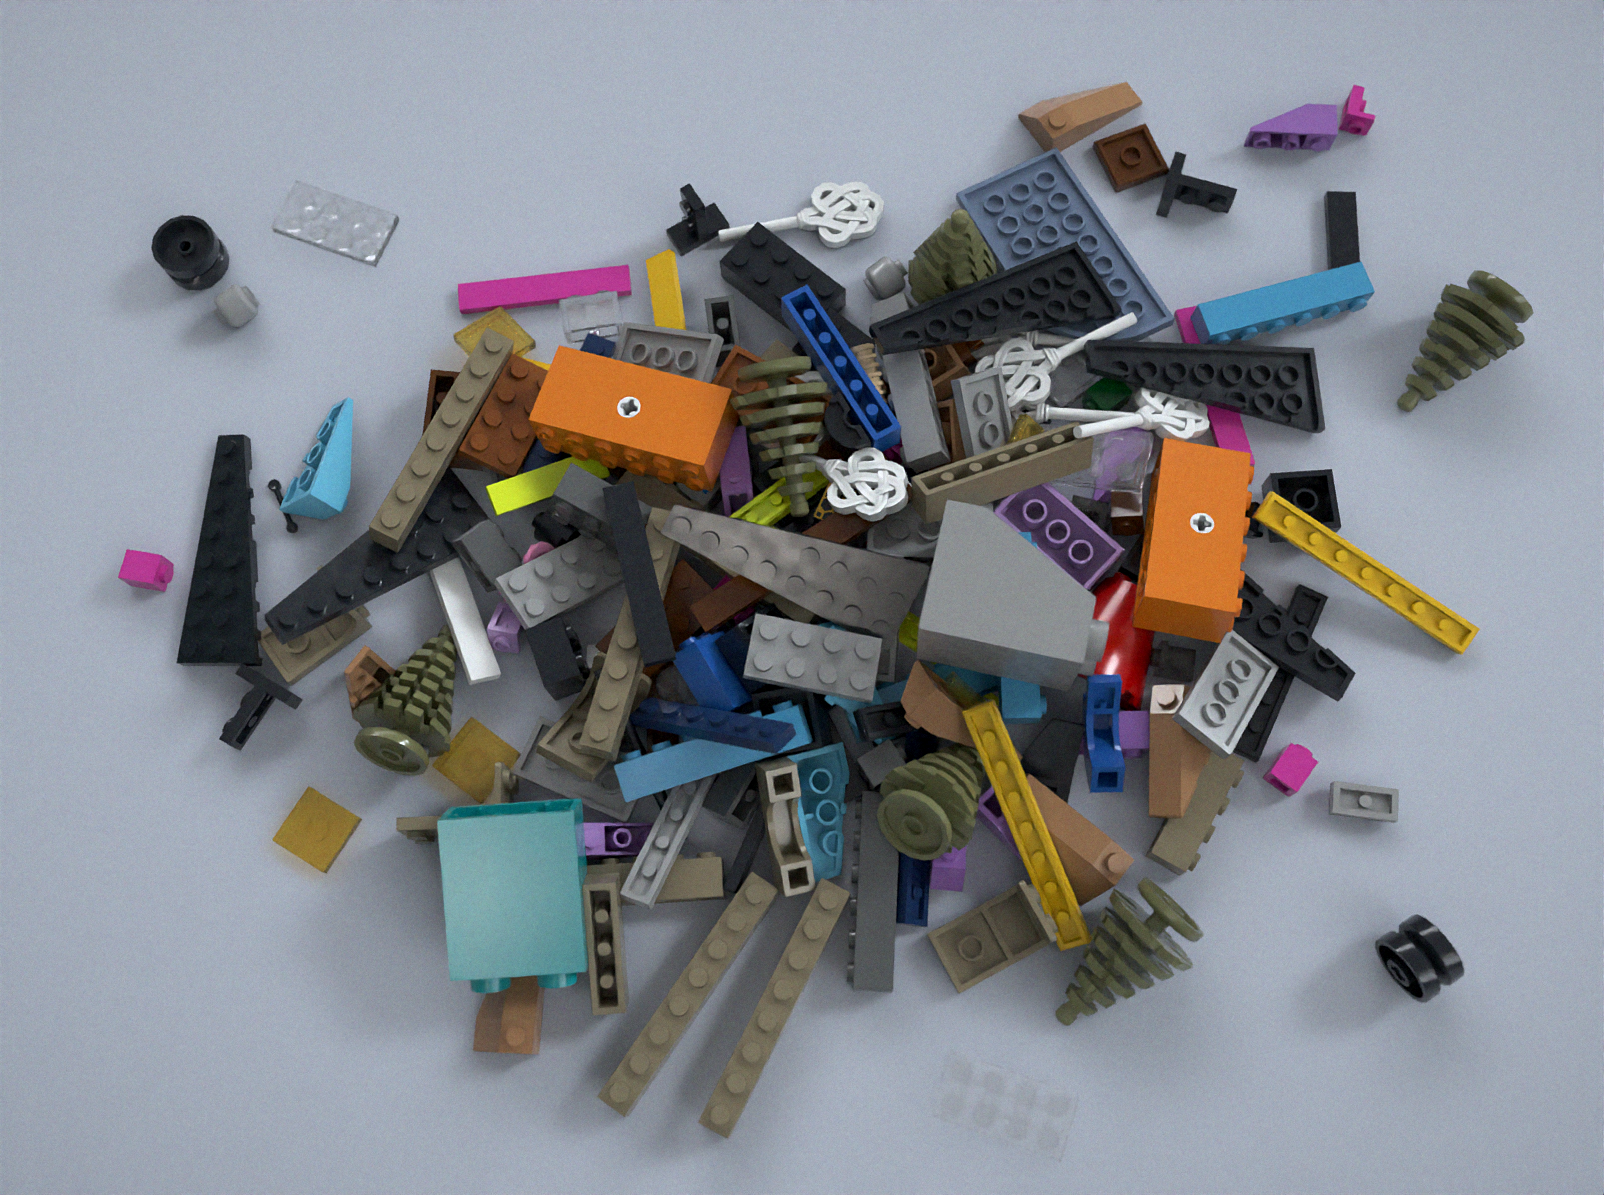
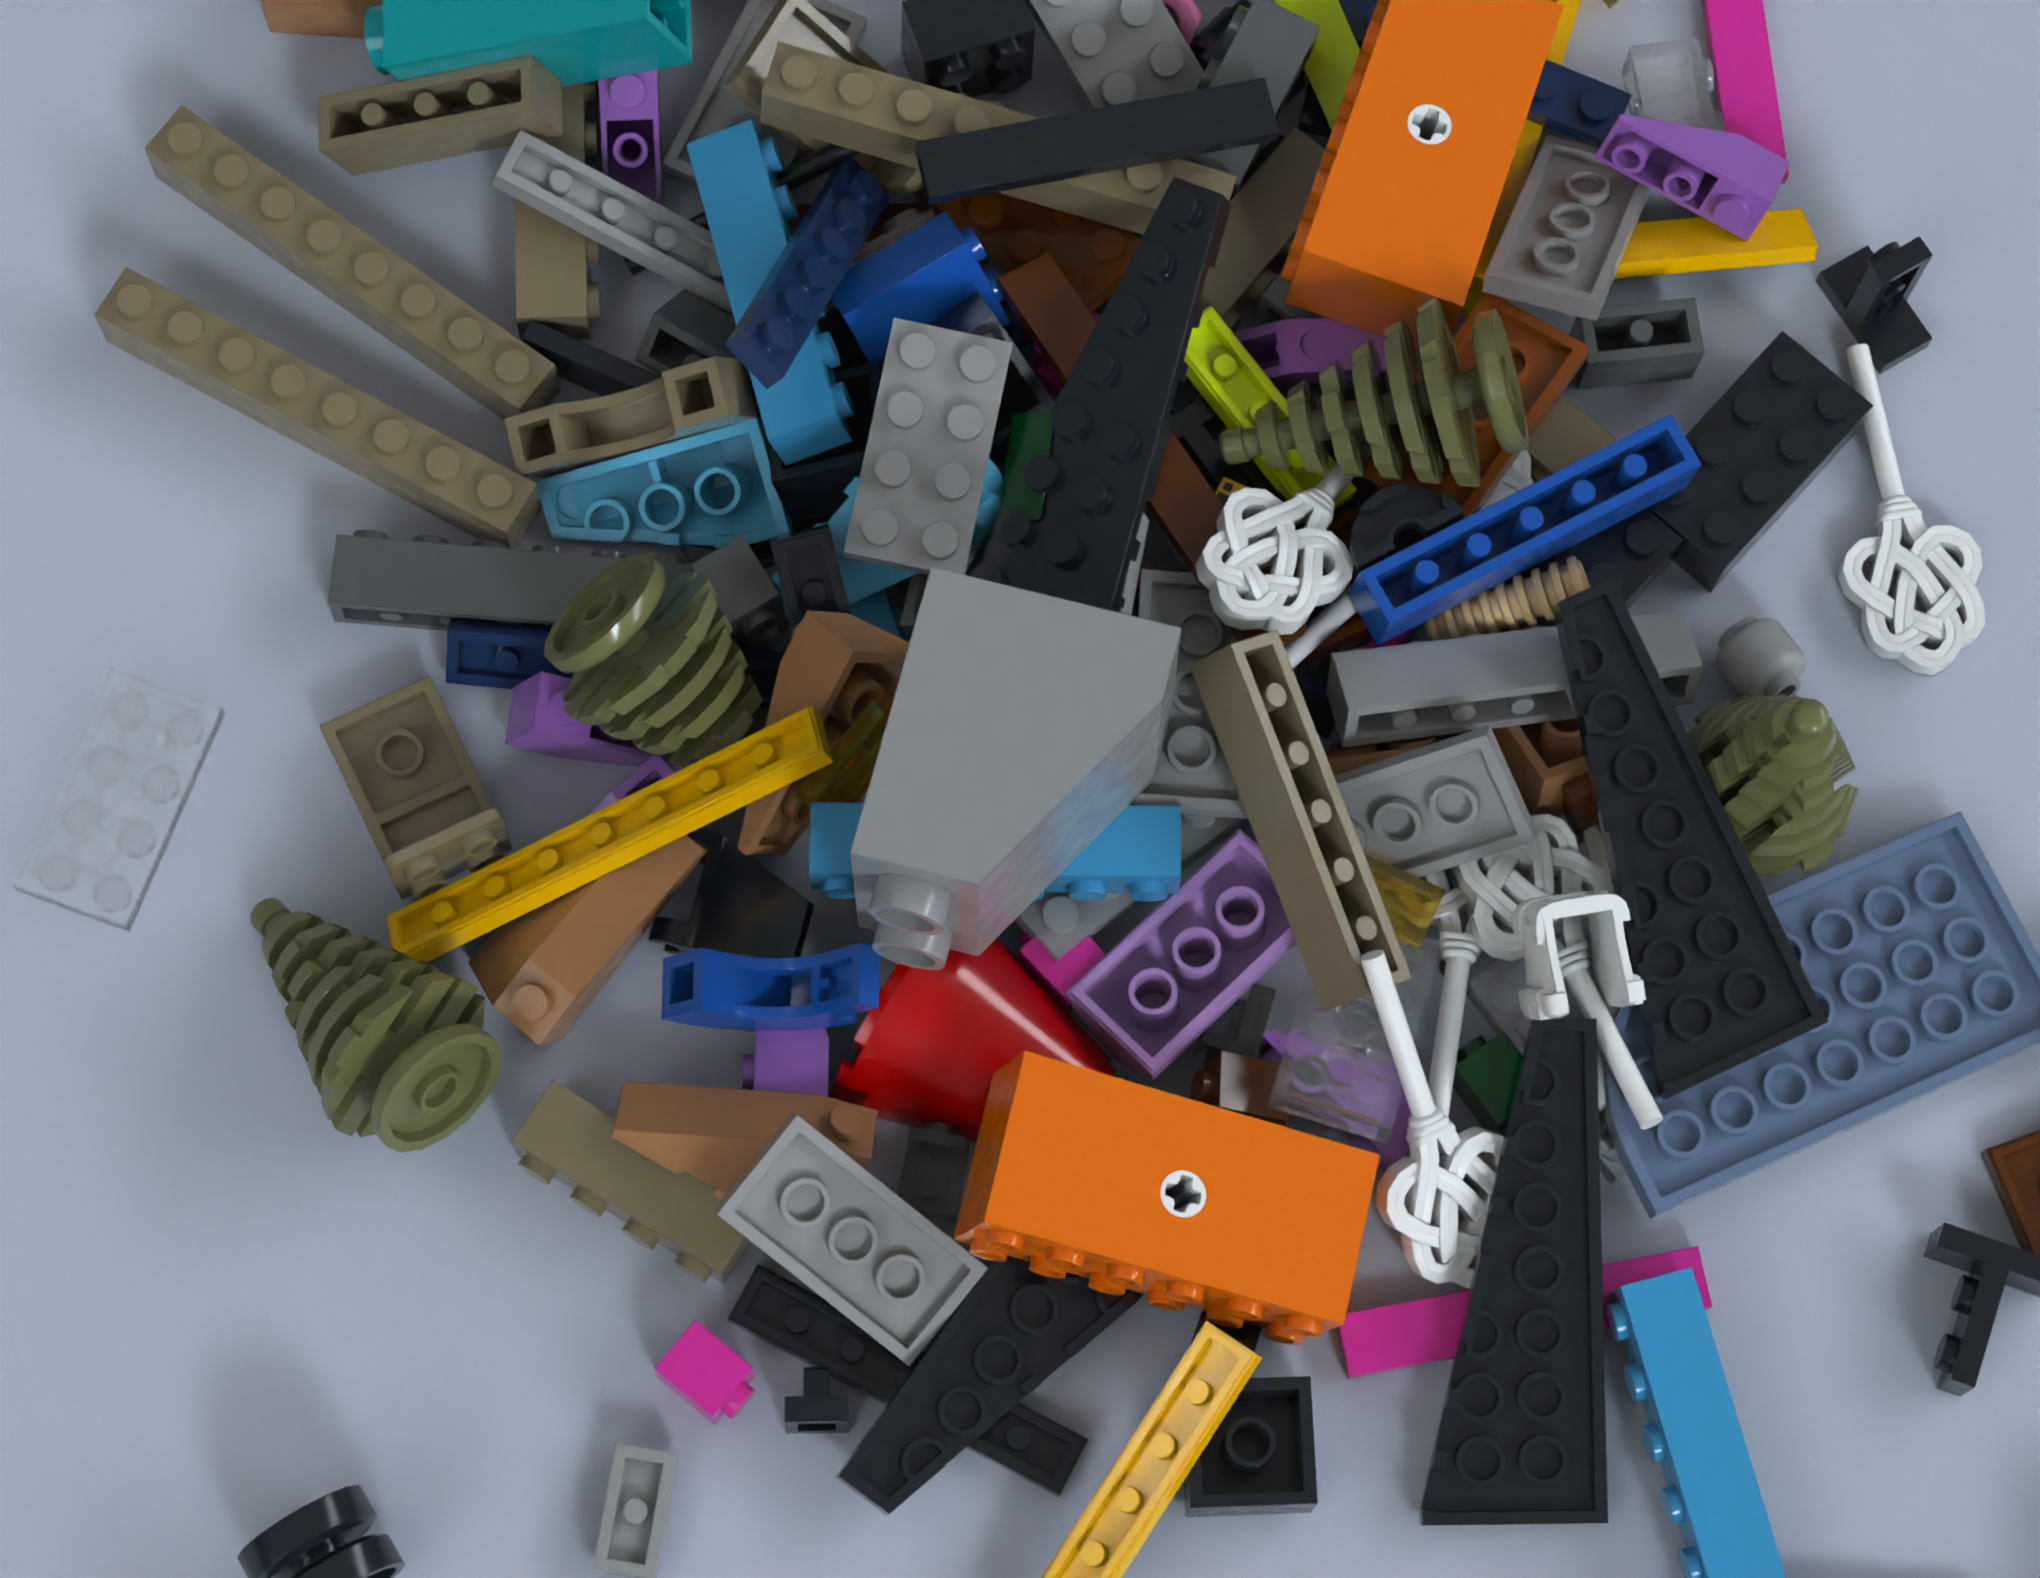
camera: 80 degrees right, 0 degrees up
(633, 296) = (1698, 168): none -> medium lavender slope
(804, 610) = (1028, 438): none -> dark green sticker
(1059, 362) = (1545, 990): none -> white piece
(1301, 713) = (816, 1409): none -> black tile

